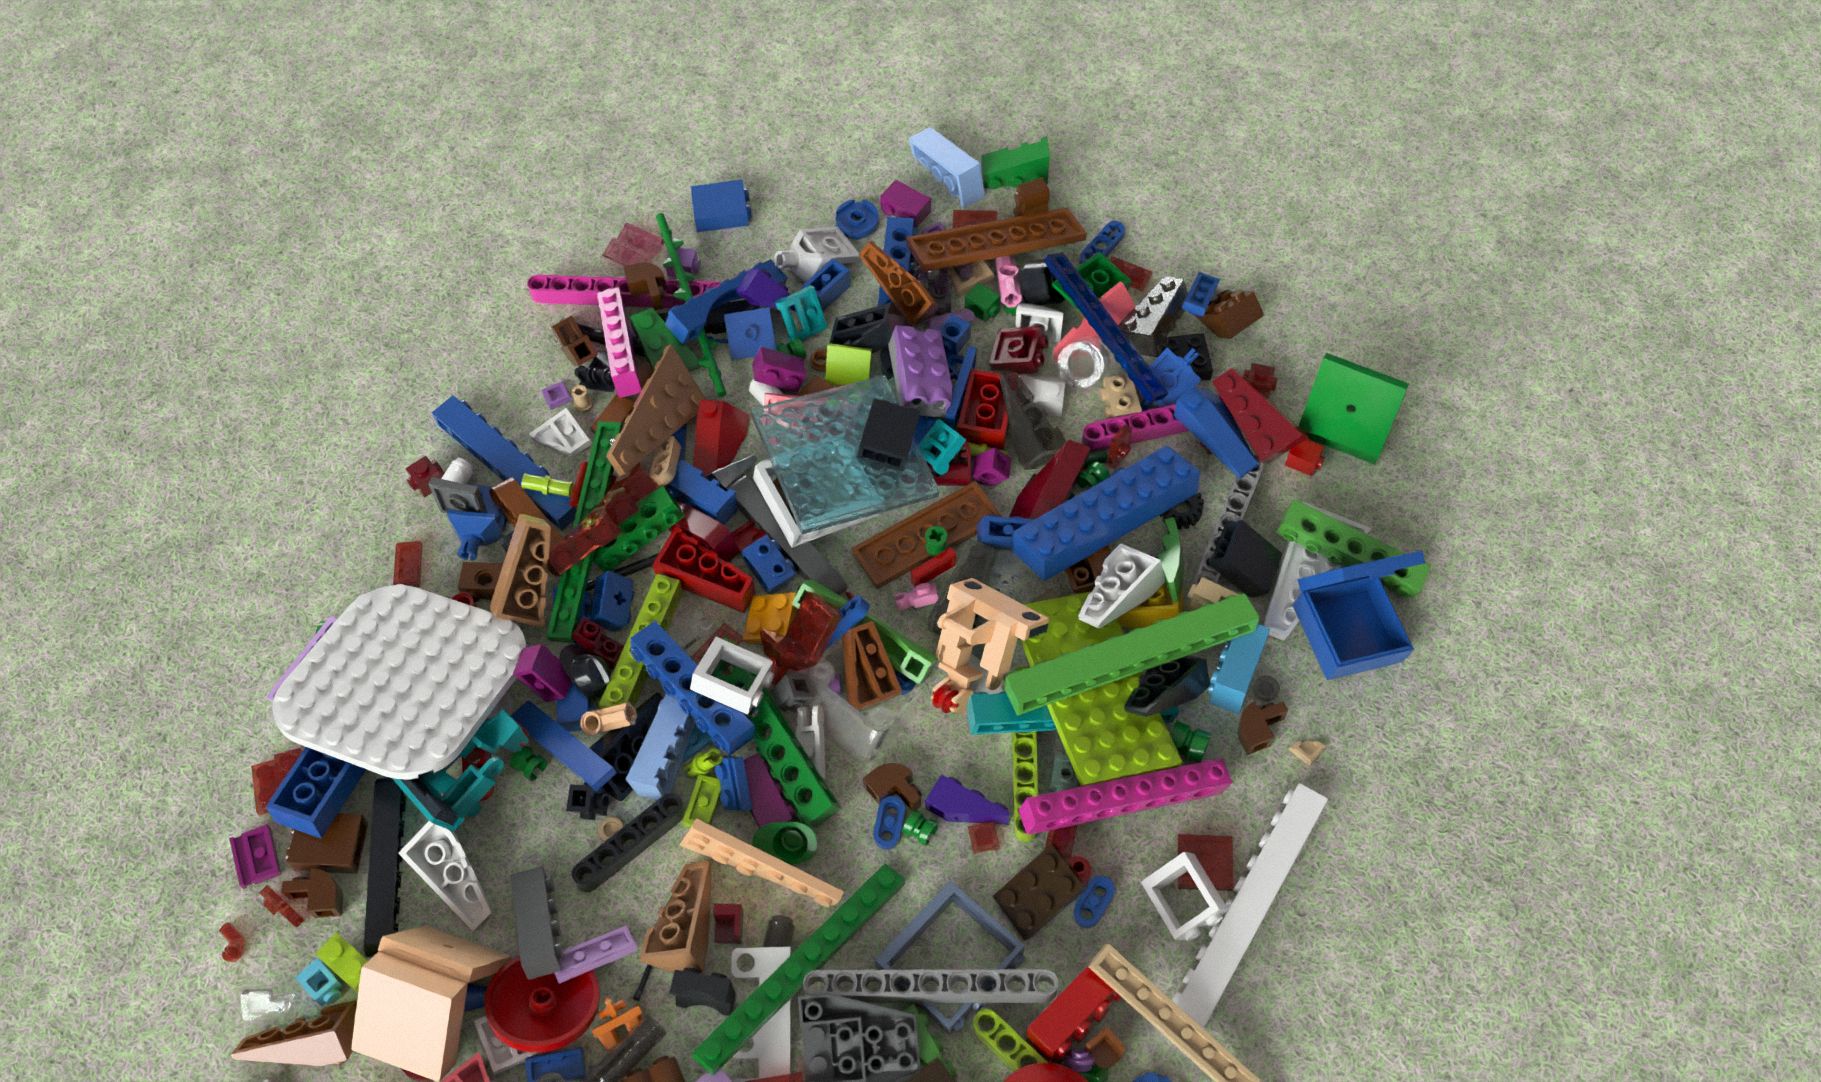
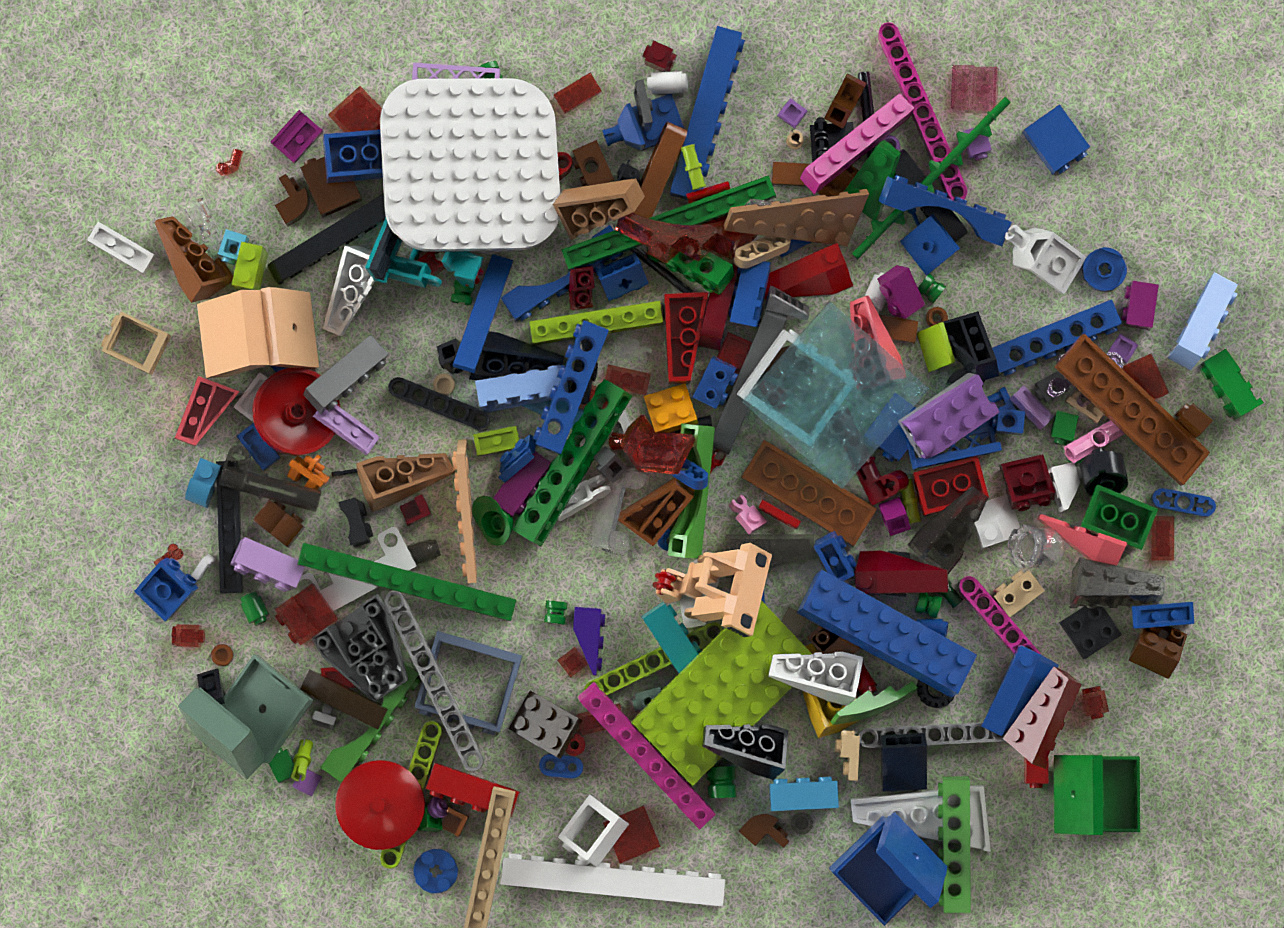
camera: 65 degrees right, 25 degrees up
(275, 904) = (270, 177): clear red plate -> none
(542, 673) = (530, 267): magenta brick -> none
(562, 434) = (756, 143): white wing -> none
(586, 670) = (551, 294): black piece -> none
(608, 718) = (520, 336): light nougat piece -> none
(646, 279) = (932, 127): reddish brown brick -> none
(703, 763) = (523, 426): lime pin -> none
(724, 692) = (570, 417): white window -> none
(762, 290) = (967, 242): dark purple slope -> none
(808, 312) = (973, 284): teal plate -> none
(829, 282) = (1011, 283): blue brick -> none
(836, 684) = (646, 487): medium lavender tile -> none
(888, 434) = (867, 424): black brick -> none
(889, 823) = (549, 587): blue plate -> none
(892, 780) = (582, 571): reddish brown brick -> none
(903, 289) = (1027, 366): dark orange wedge -> none
(936, 540) = (797, 500): green bush -> none
(944, 439) = (889, 471): teal plate -> none
(1106, 327) = (1071, 551): clear blue plate -> none
(1119, 446) = (963, 615): clear red plate -> none
(1130, 653) = (754, 710): bright green brick -> none
(1175, 376) = (1052, 625): blue plate -> none
(1307, 750) = (763, 875): tan tile -> none

